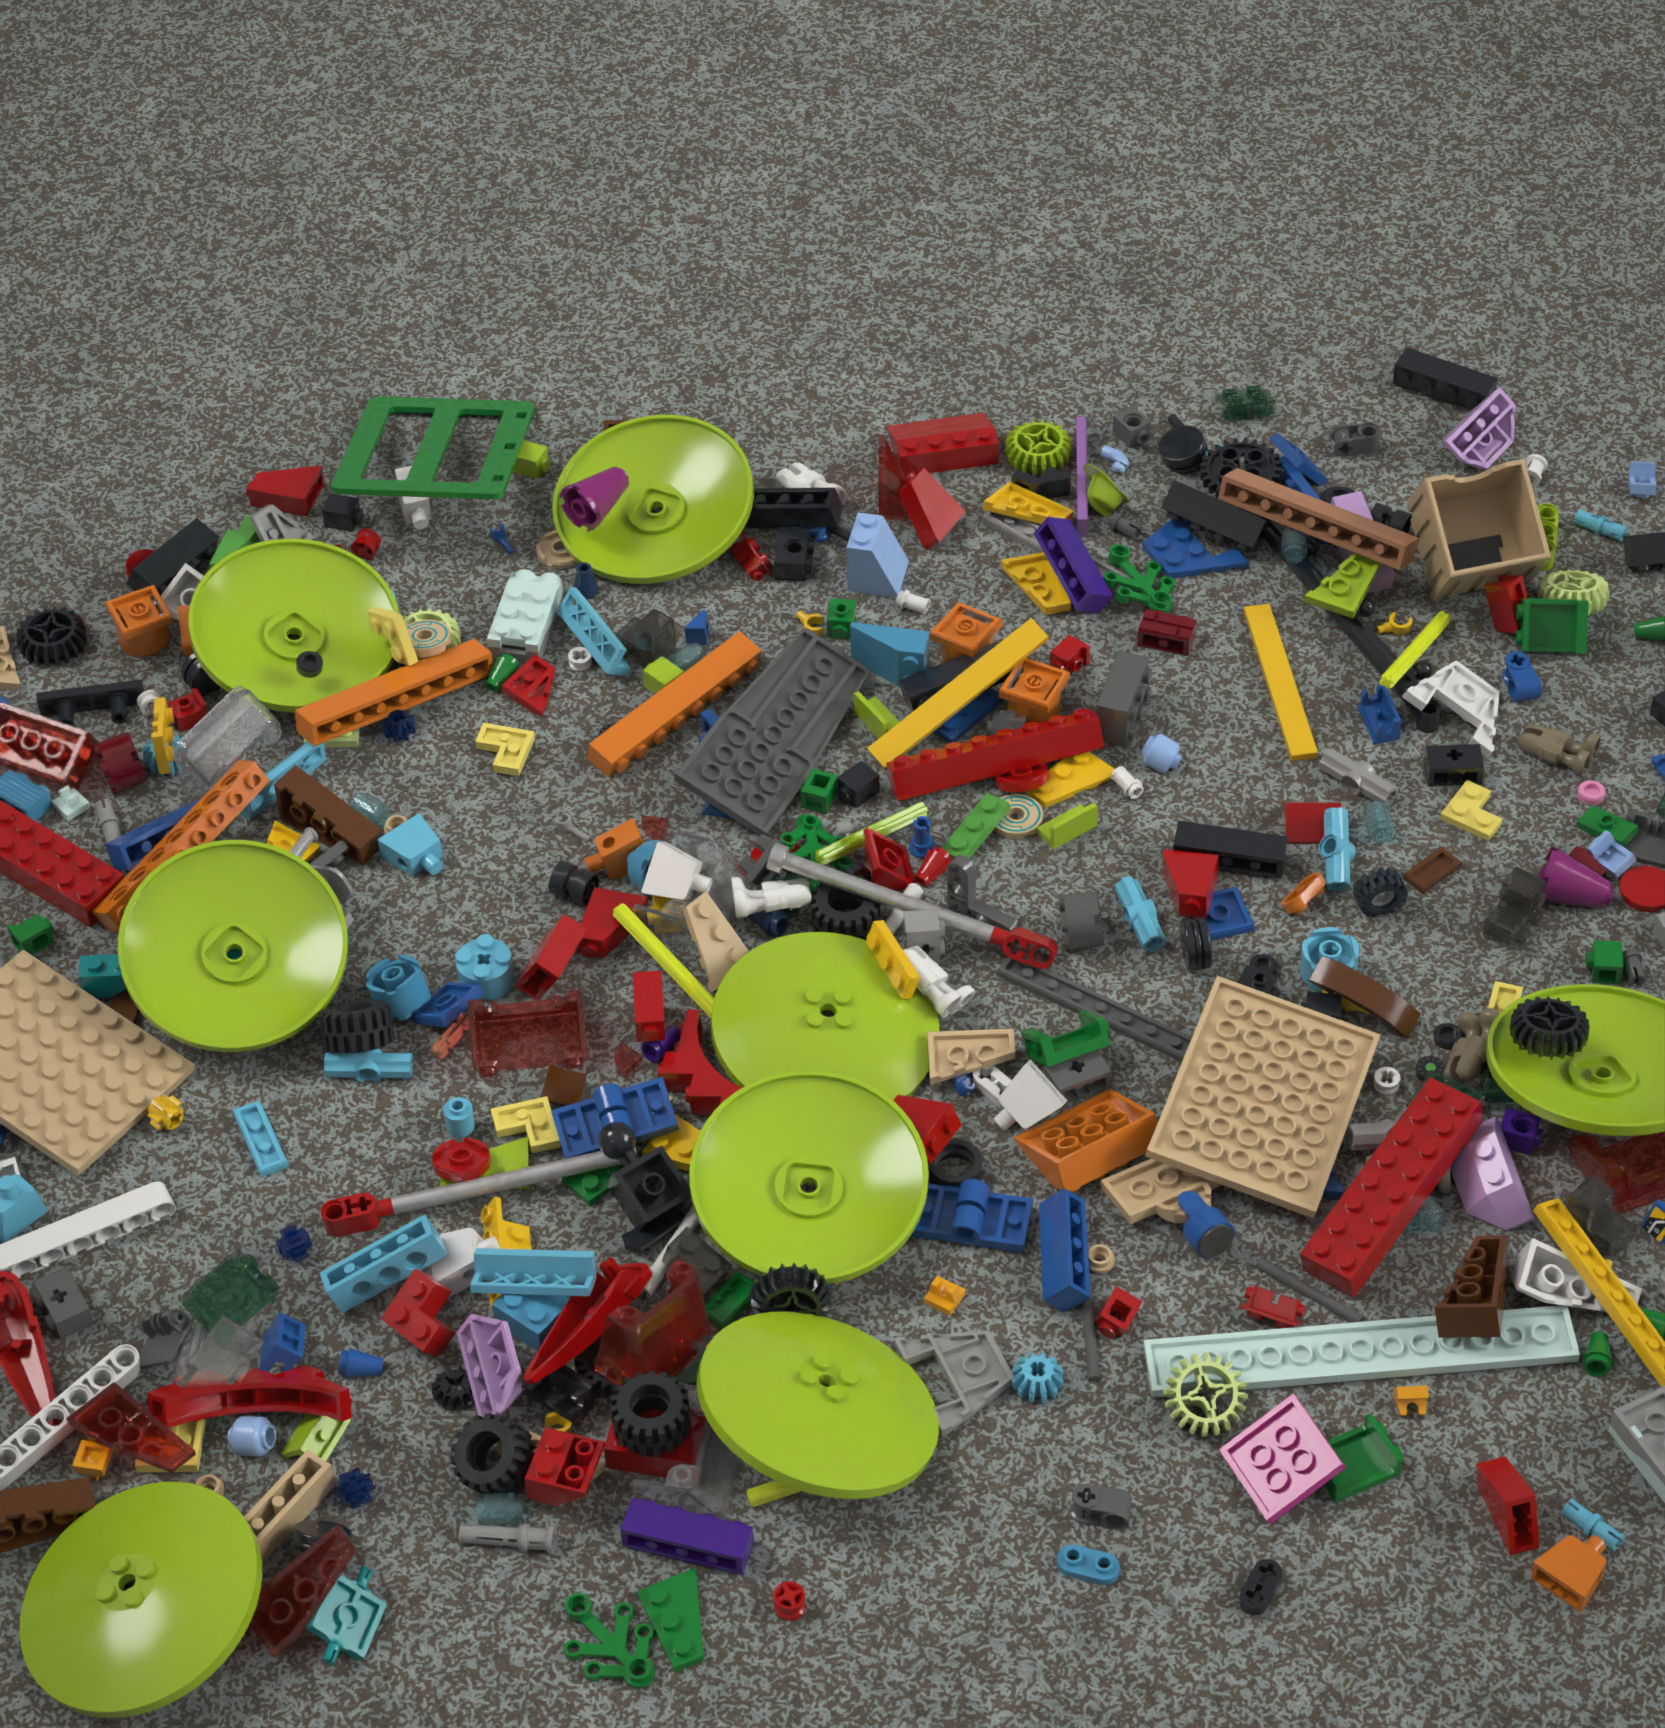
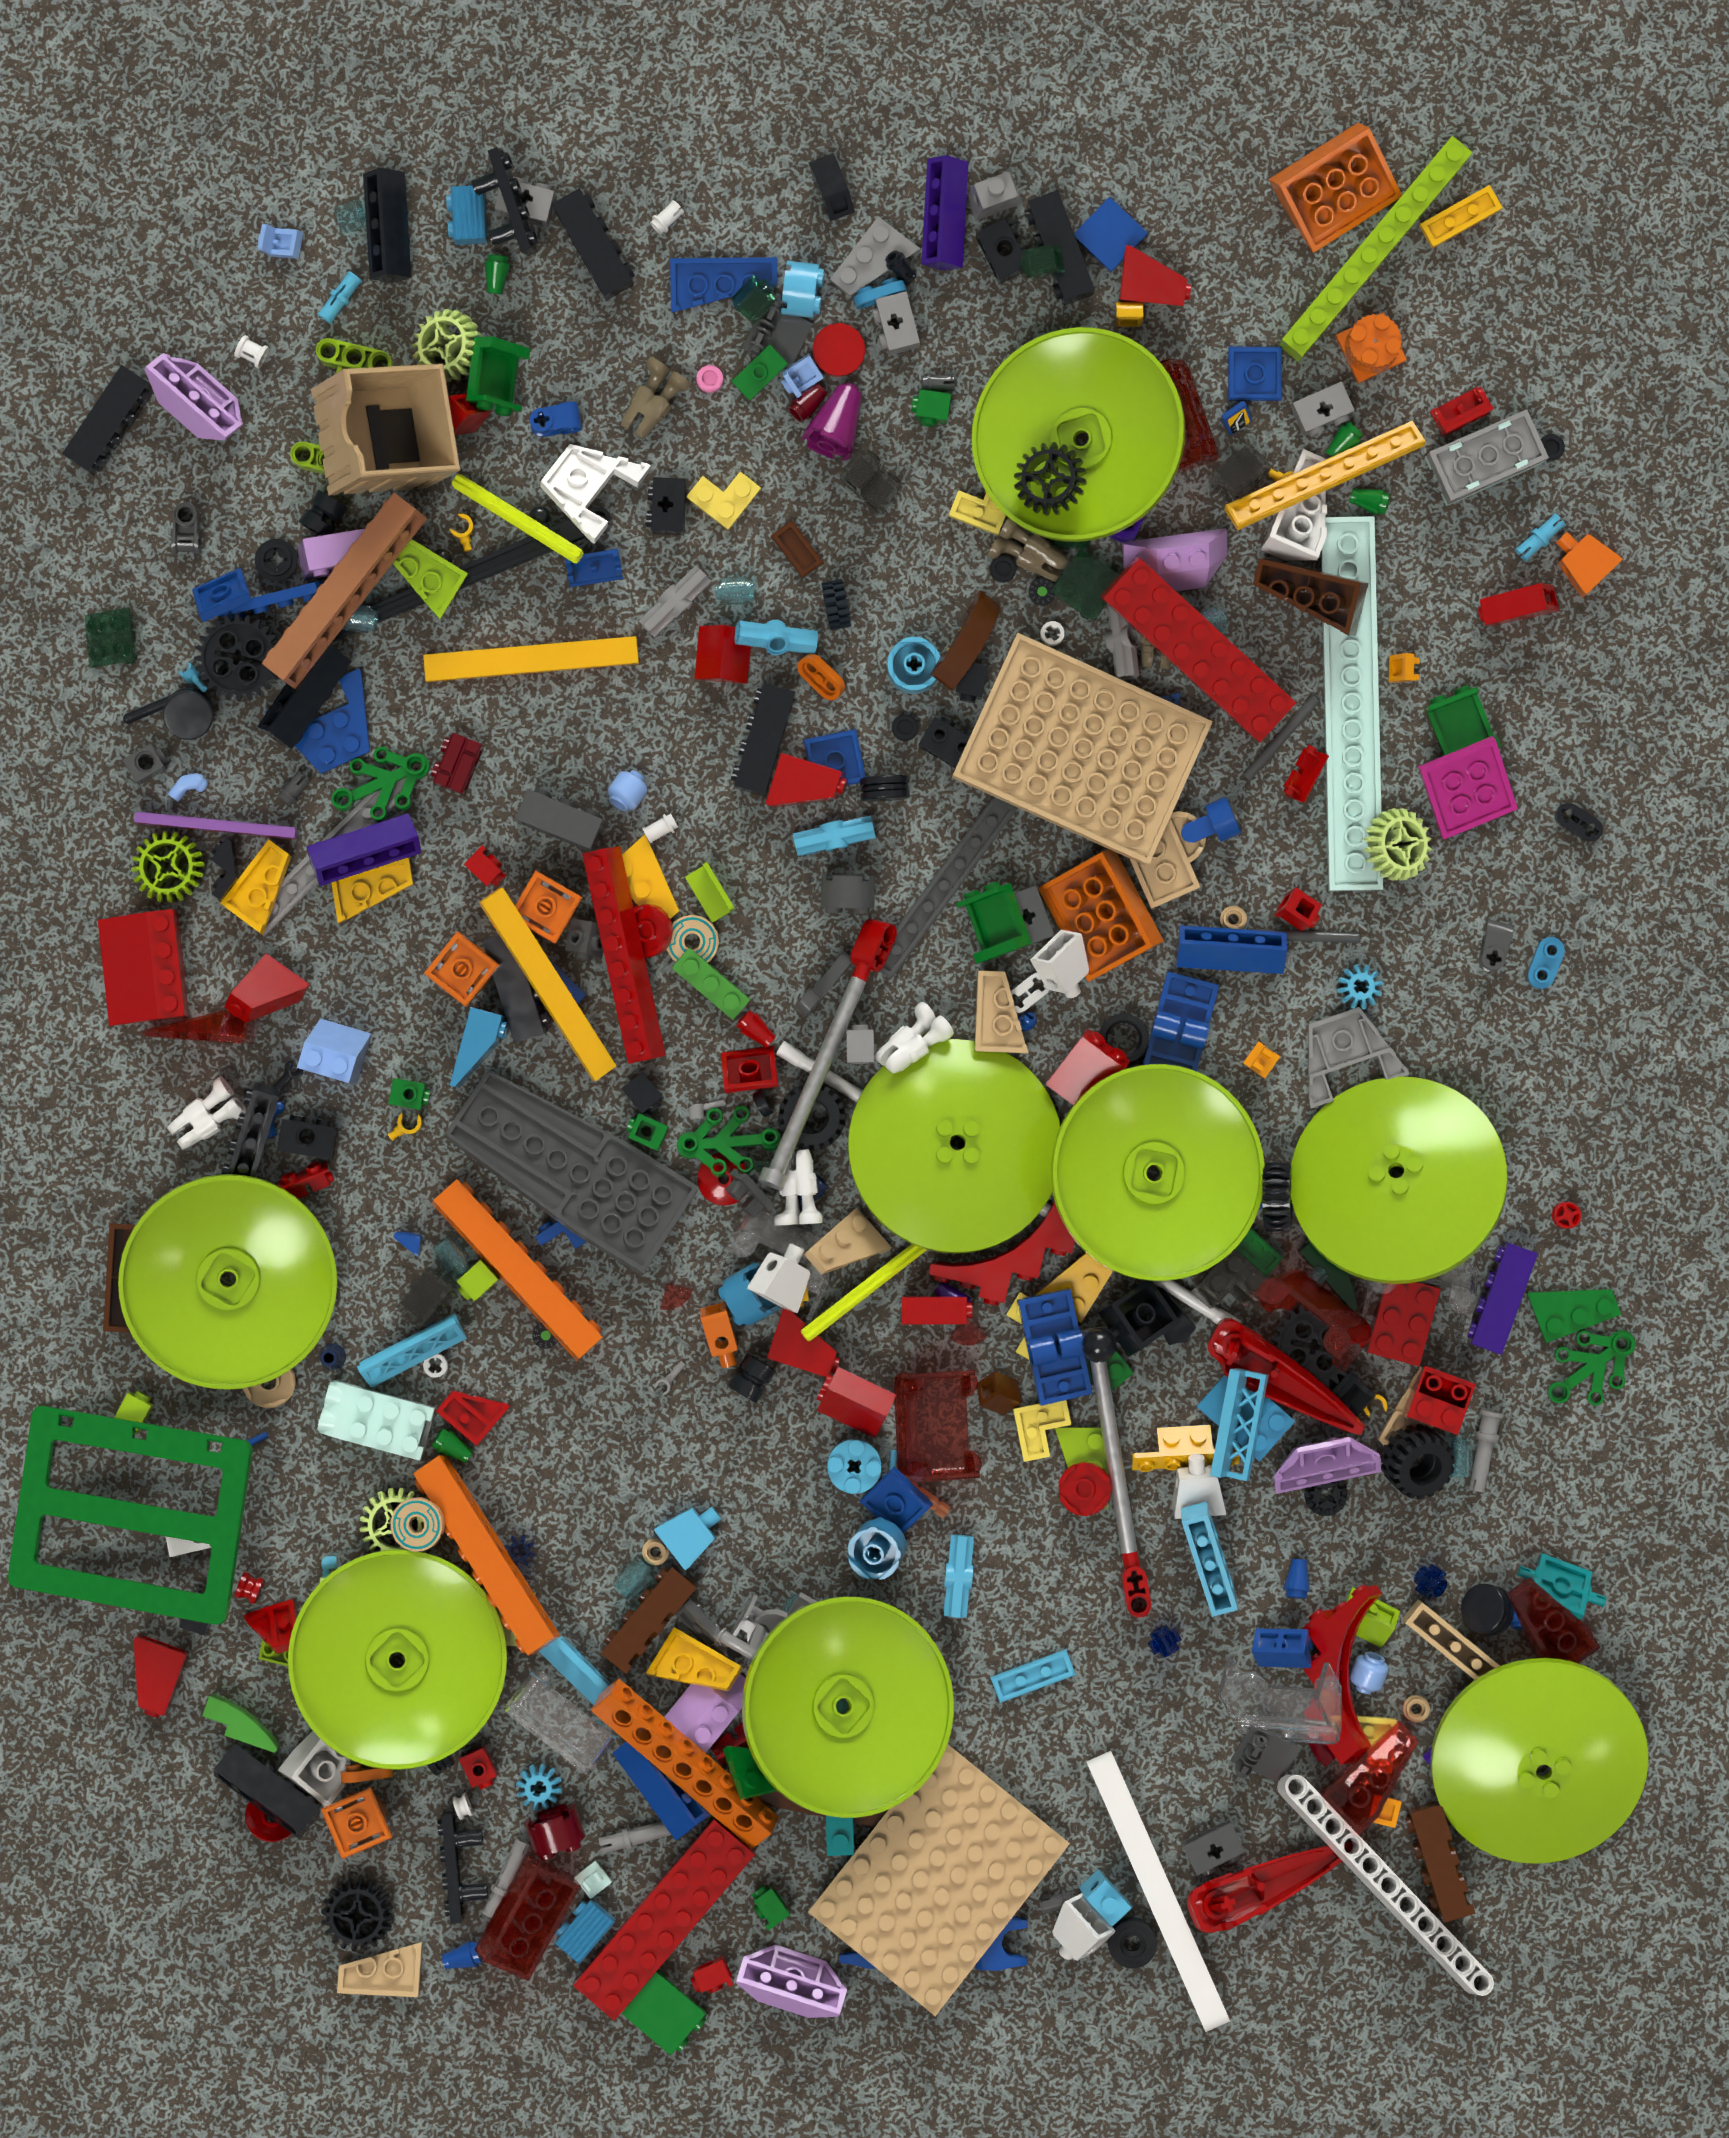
camera: 90 degrees left, 40 degrees up
(163, 735) = (546, 1790): yellow wing -> none
(165, 1113) = (1003, 1765): yellow gear -> none
(231, 1290) = (1241, 1699): clear green panel -> none
(273, 525) = (230, 1679): light grey wing -> none
(309, 664) = (457, 1642): black tile -> none
(356, 1026) = (944, 1581): black tyre -> none
(392, 626) = (428, 1557): light yellow plate -> none
(414, 1313) = (1263, 1529): red brick -> none
(459, 1117) = (1032, 1482): medium azure brick -> none
(510, 743) = (556, 1434): light yellow plate -> none
(593, 497) = (233, 1341): magenta cone -> none
(656, 1433) = (1429, 1329): black tyre -> none
(856, 840) = (709, 1084): lime axle -> none
(873, 714) = (549, 1065): lime panel -> none
(892, 959) = (897, 1077): yellow plate -> none
(912, 602) = (386, 1019): white pin -> none
(922, 839) = (722, 1036): blue pin -> none
(1102, 492) = (252, 805): lime piece -> none

